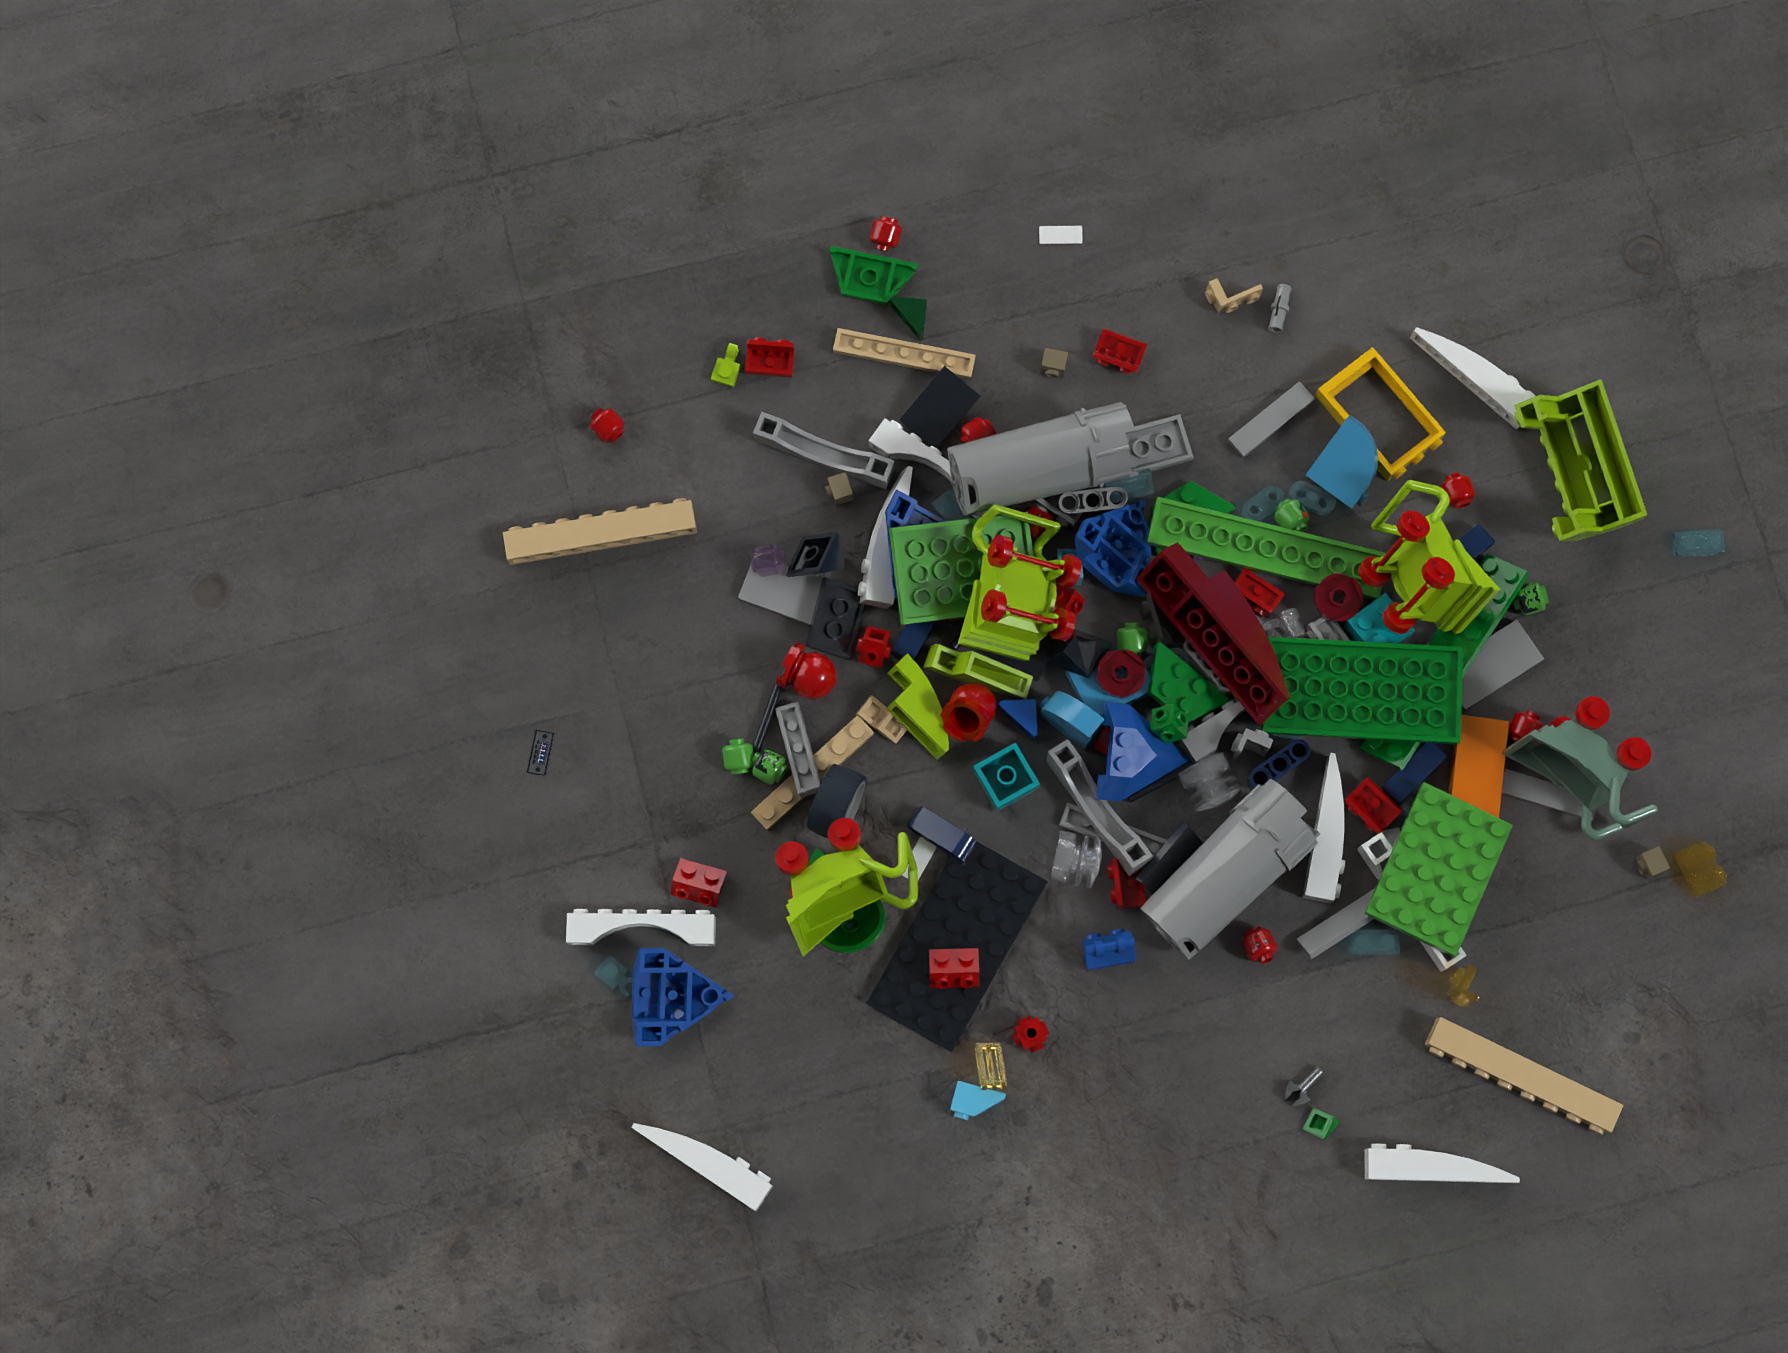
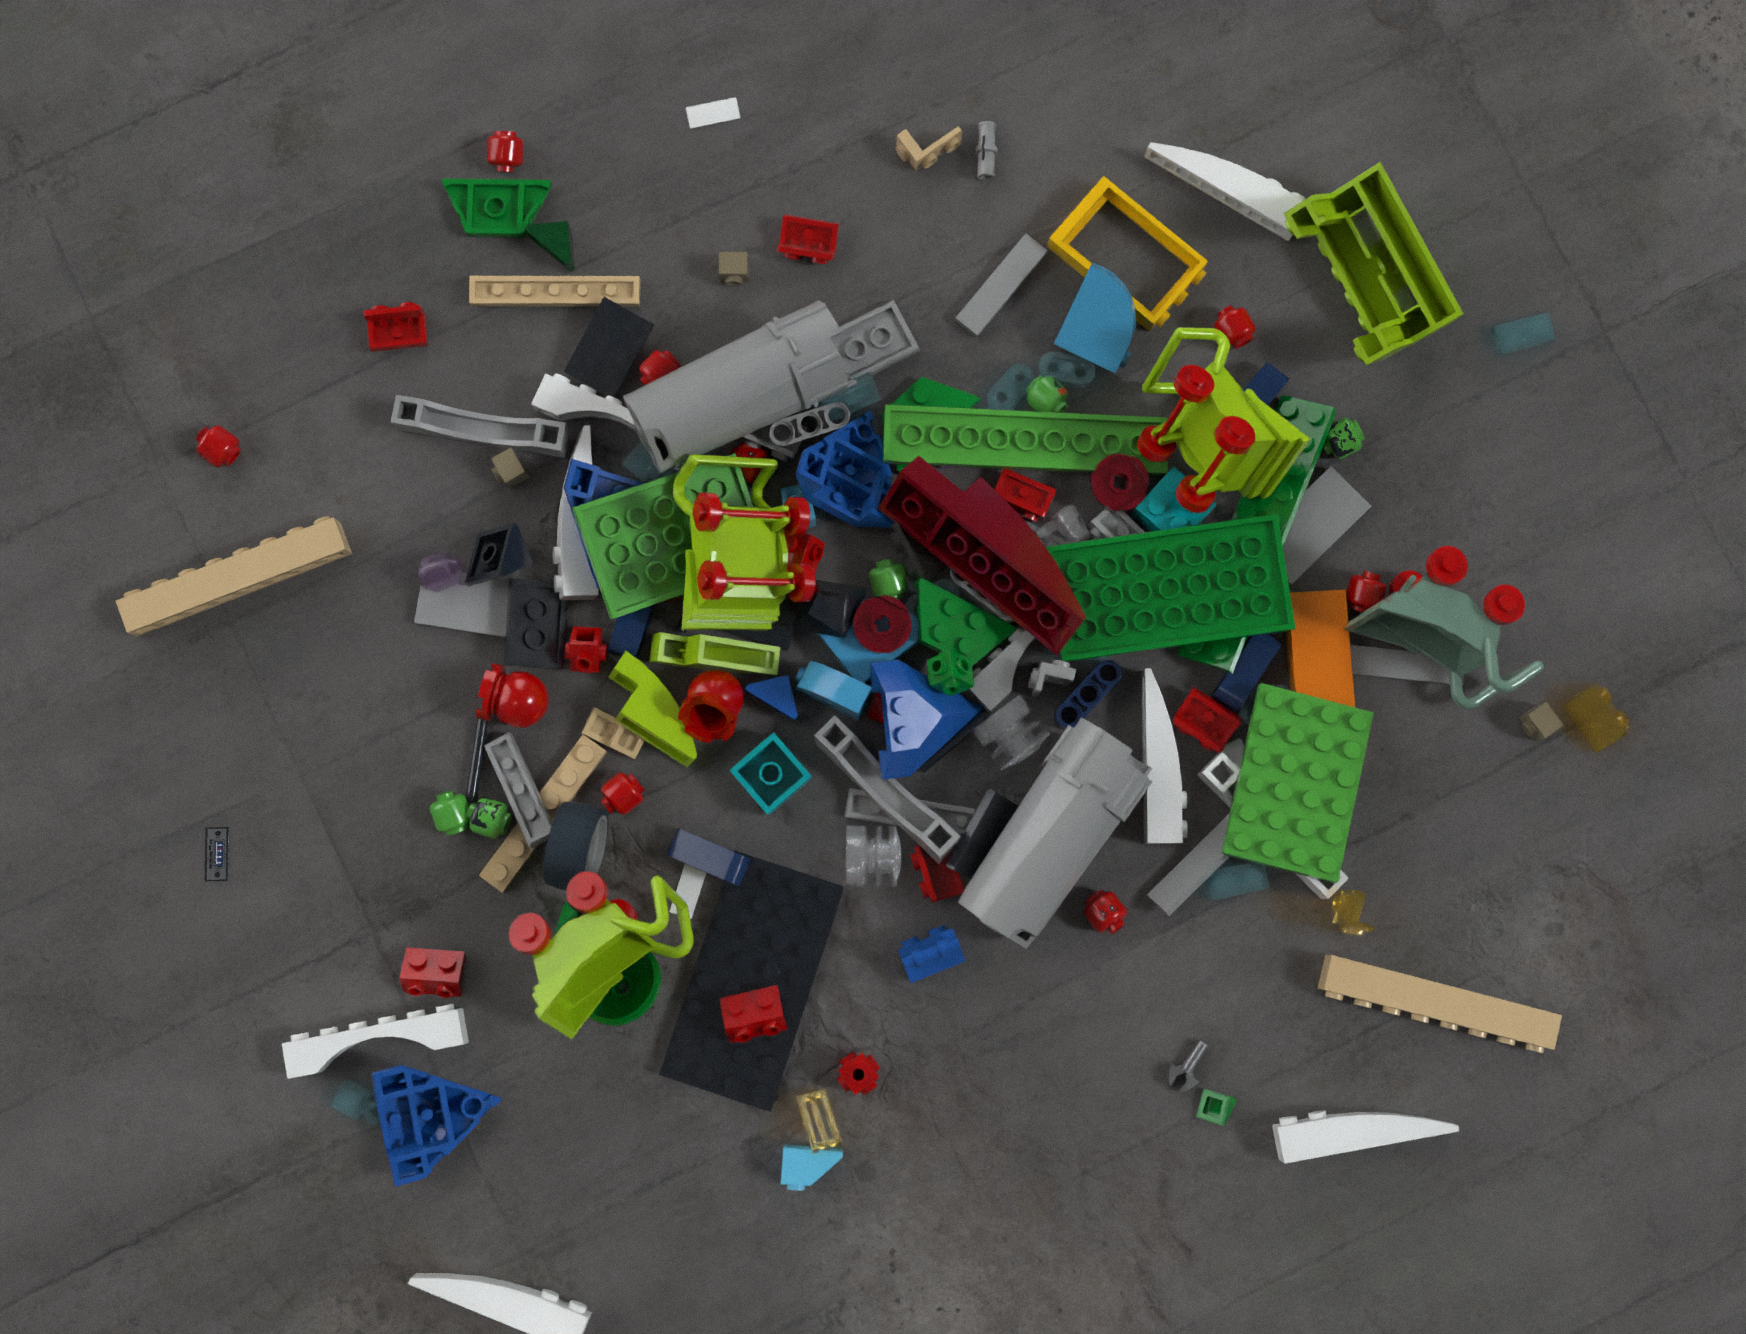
camera: 15 degrees left, 5 degrees up
(726, 369) = (349, 352): lime plate -> none
(881, 769) = (622, 793): none -> red head

